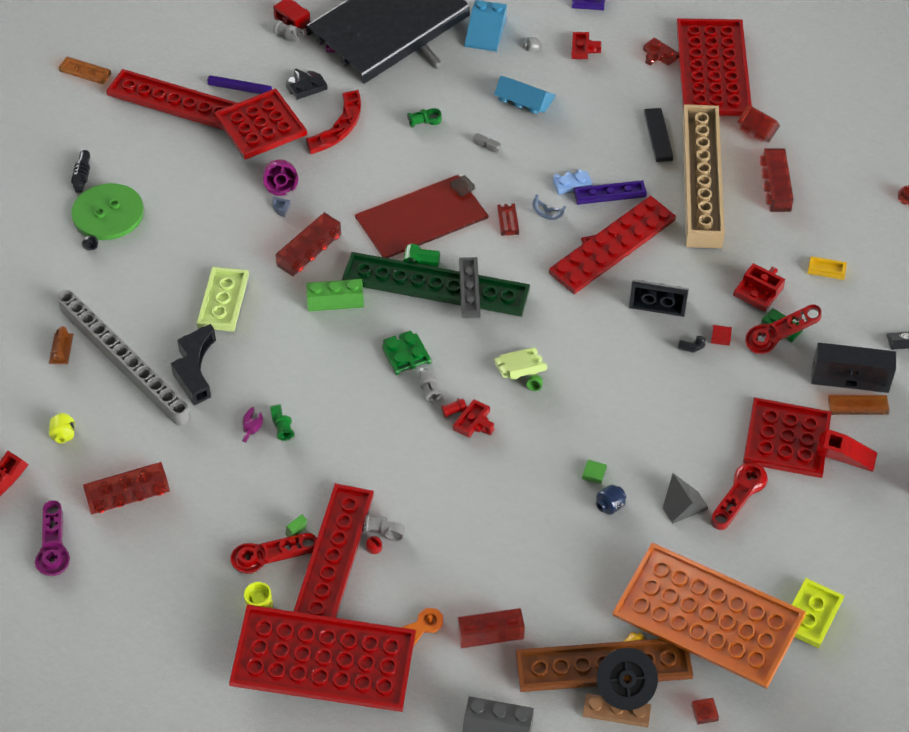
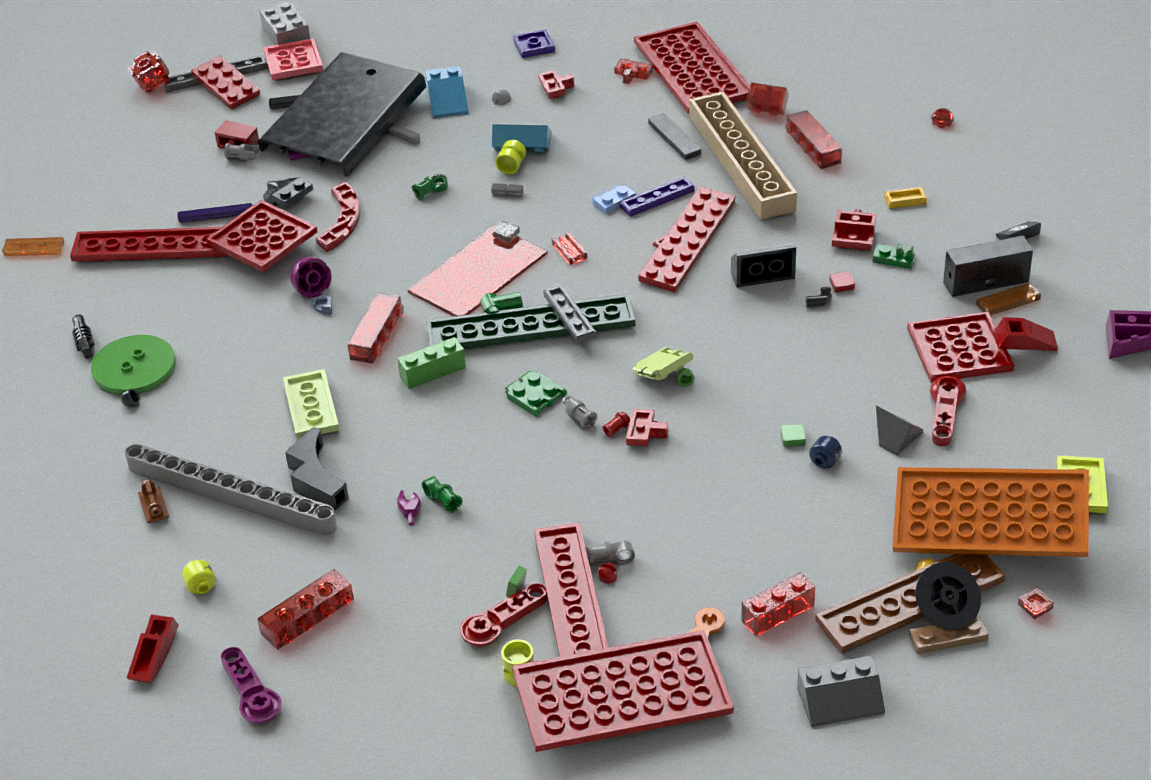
camera: 20 degrees left, 10 degrees down
(504, 111) = (510, 157): none -> neon yellow wheel
(536, 201) = (620, 226): sand blue helmet -> none
(779, 330) = (898, 256): red beam -> none

